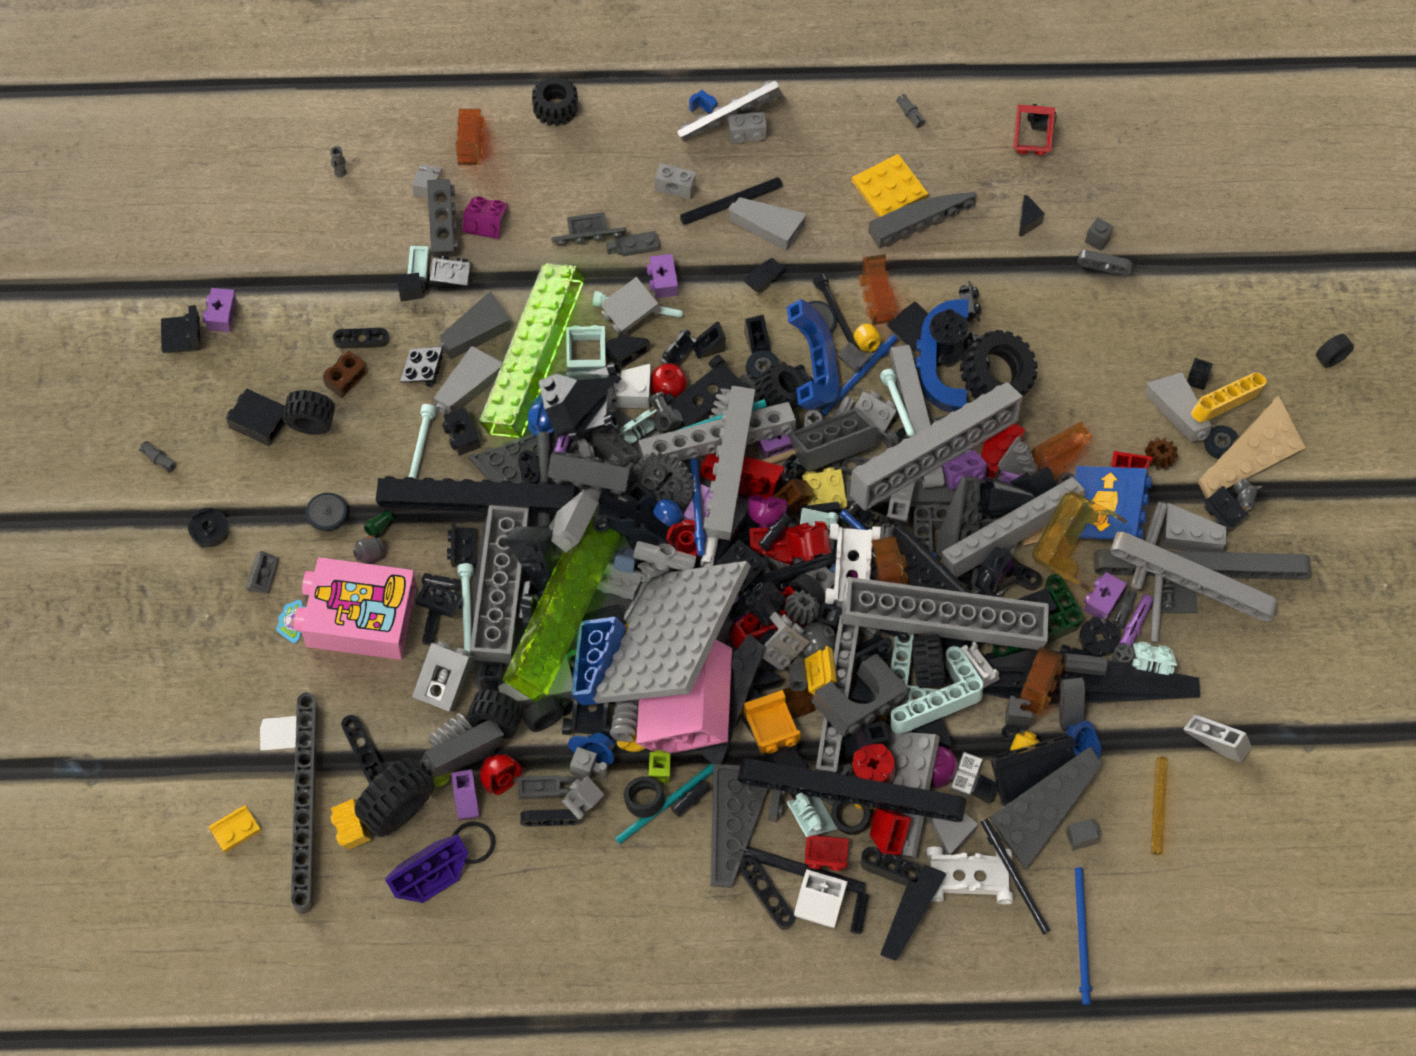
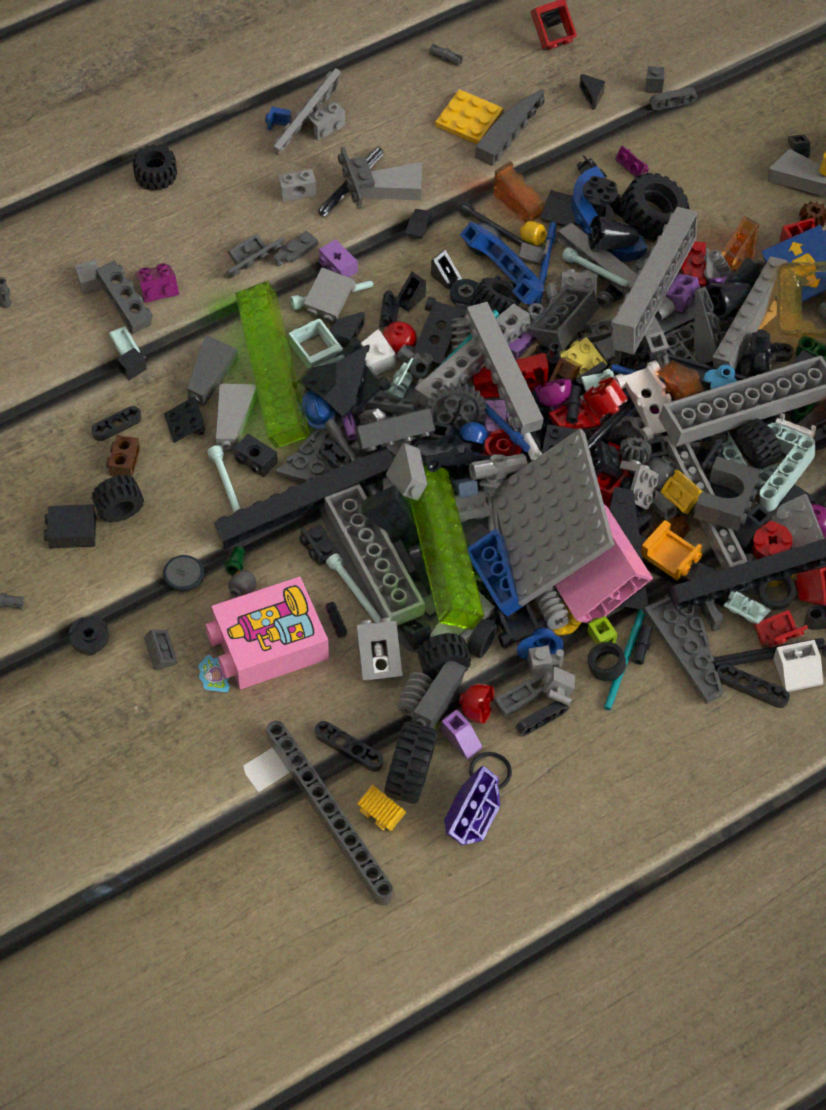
camera: 30 degrees left, 5 degrees down
(234, 829) = (282, 865): yellow plate -> none
(439, 599) = (332, 593): black bracket -> none
(444, 582) = (321, 580): black axle -> none
(450, 271) = (158, 336): bracket -> none
(470, 137) = (102, 226): clear orange wedge -> none
(736, 199) = (357, 175): none -> dark grey bracket
(932, 378) = (610, 234): none -> black cone
(932, 578) = (717, 377): none -> dark azure plate
(1015, 304) = (631, 162): none -> magenta hinge

